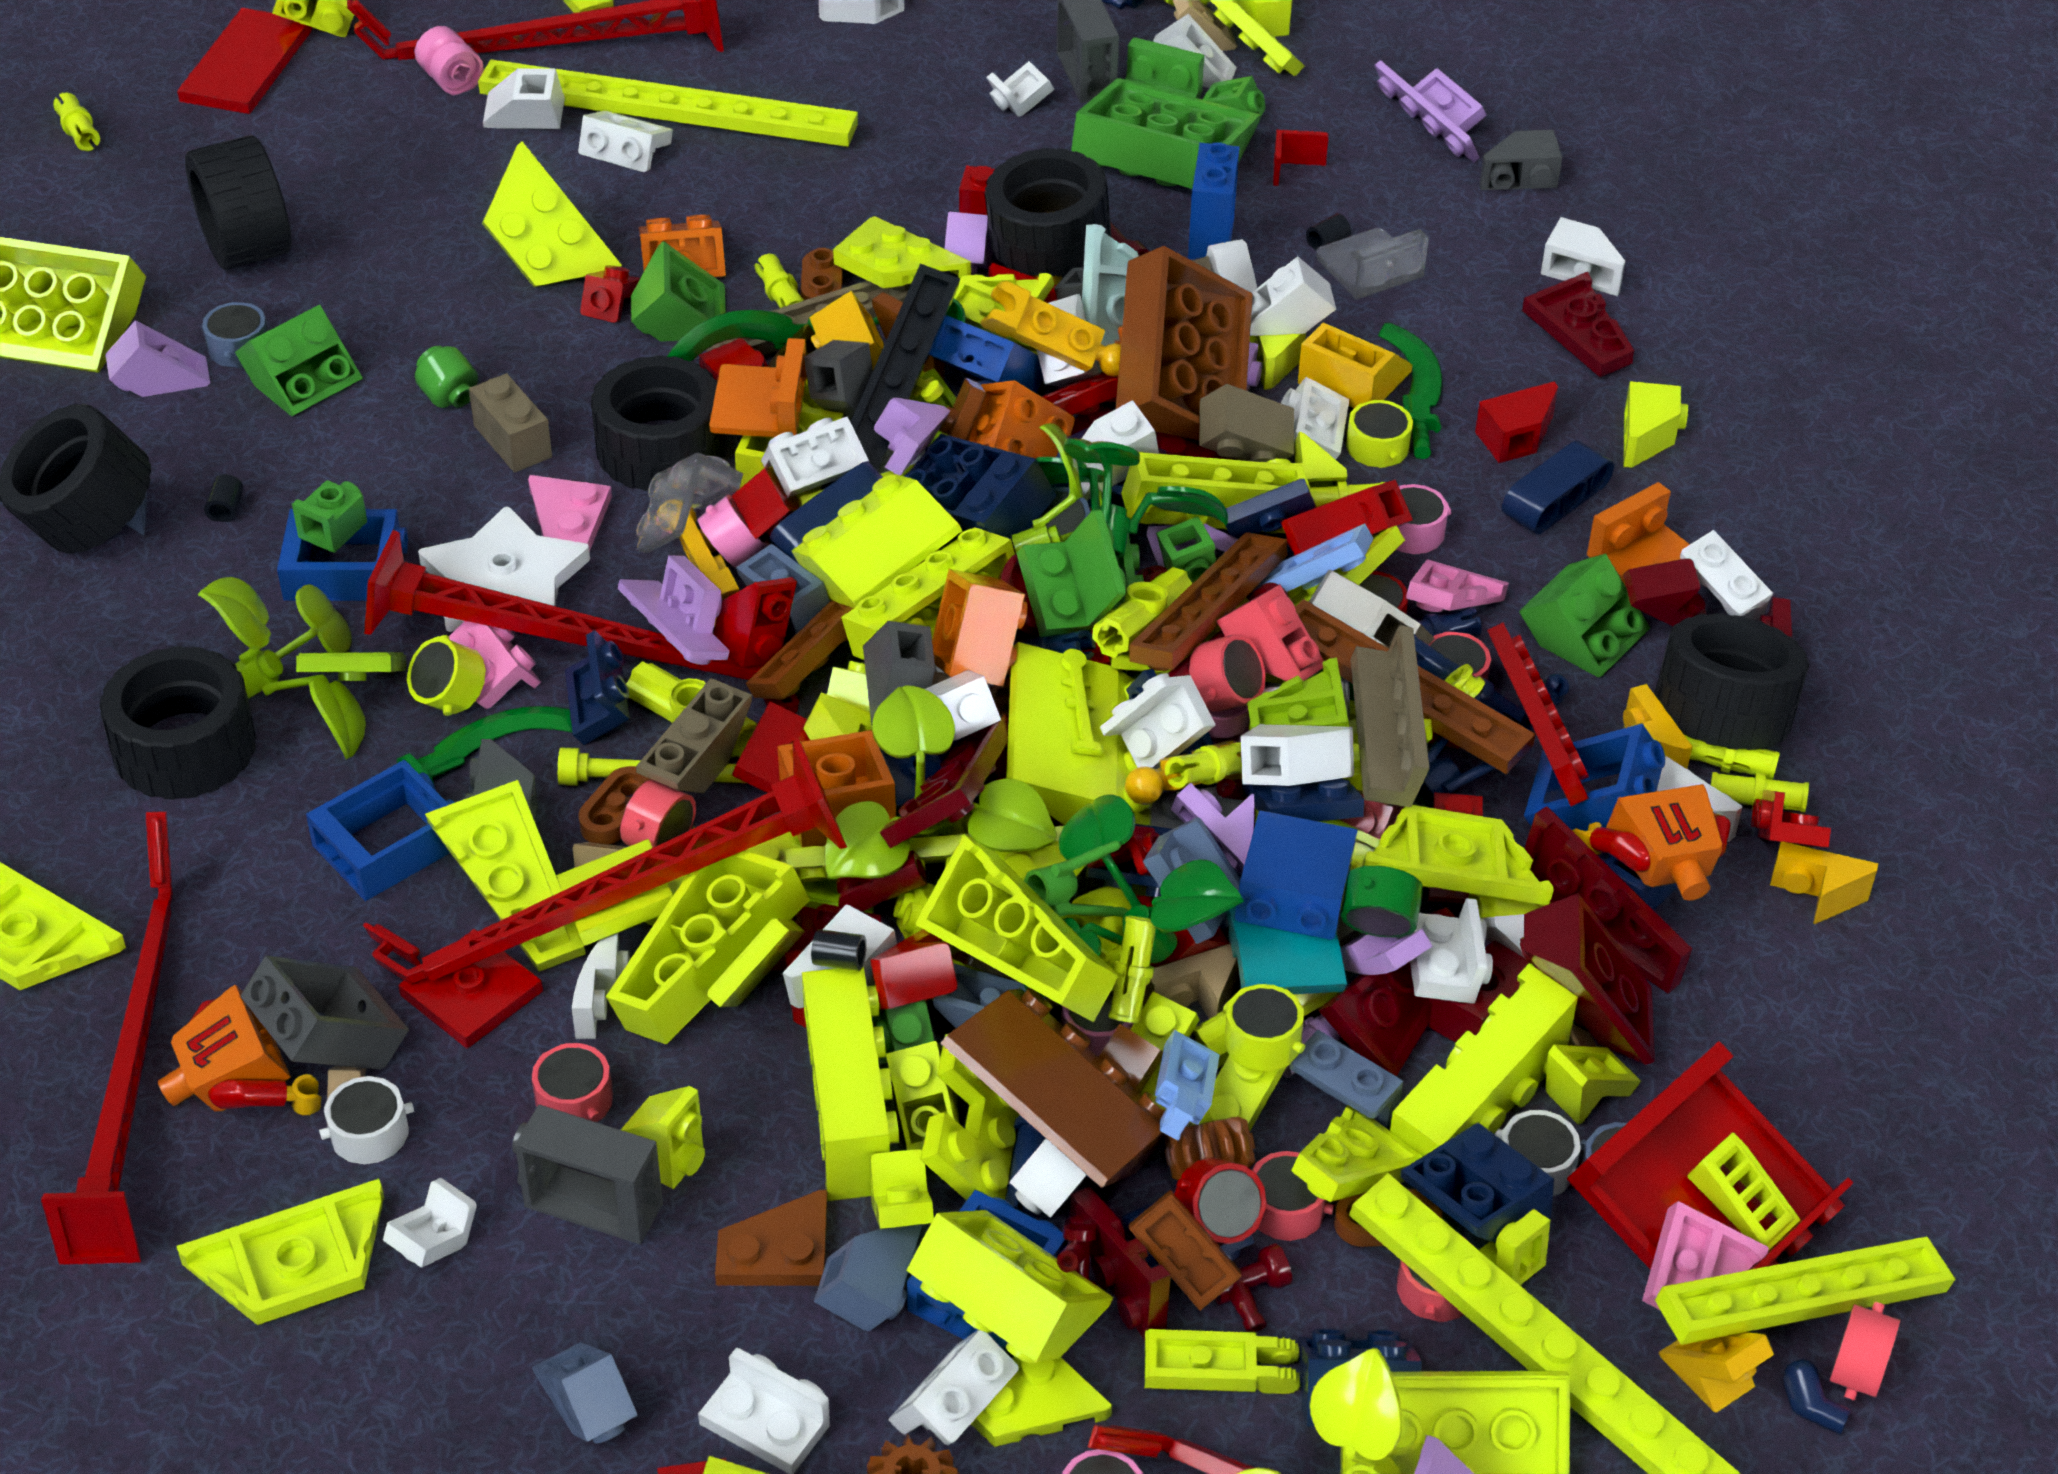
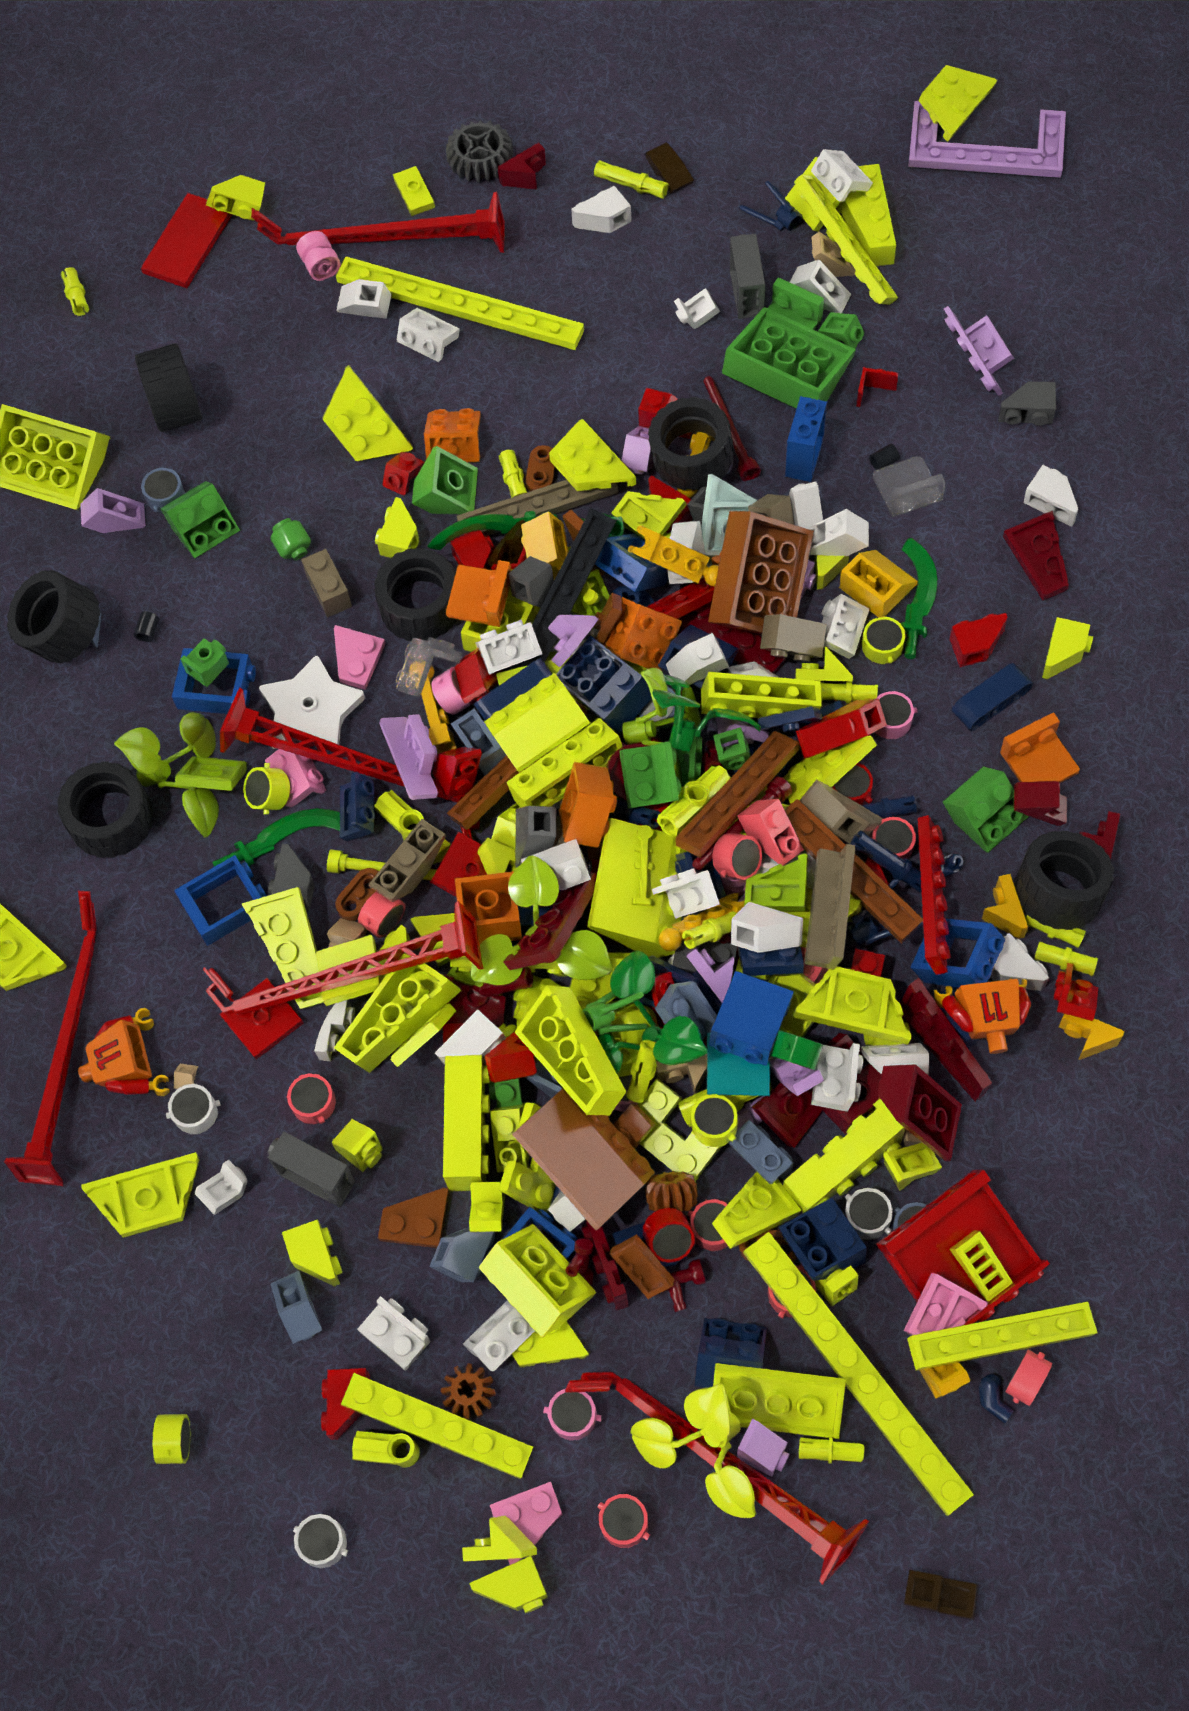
camera: 15 degrees right, 20 degrees up
(291, 992) = (188, 1022): dark grey window -> none
(601, 1305) = (310, 1251): none -> neon yellow slope
(610, 346) = (397, 532): none -> neon yellow slope
(838, 950) = (467, 1047): black hinge -> none
(1185, 1083) = (661, 1154): light blue hinge -> none
(1219, 1361) = (651, 1331): neon yellow hinge -> none
(1311, 566) = (815, 765): light blue plate -> none
(1451, 588) = (904, 777): bright pink wing -> none
(1464, 680) = (888, 870): neon yellow bush -> none
(1728, 577) = (1081, 793): white bracket -> none

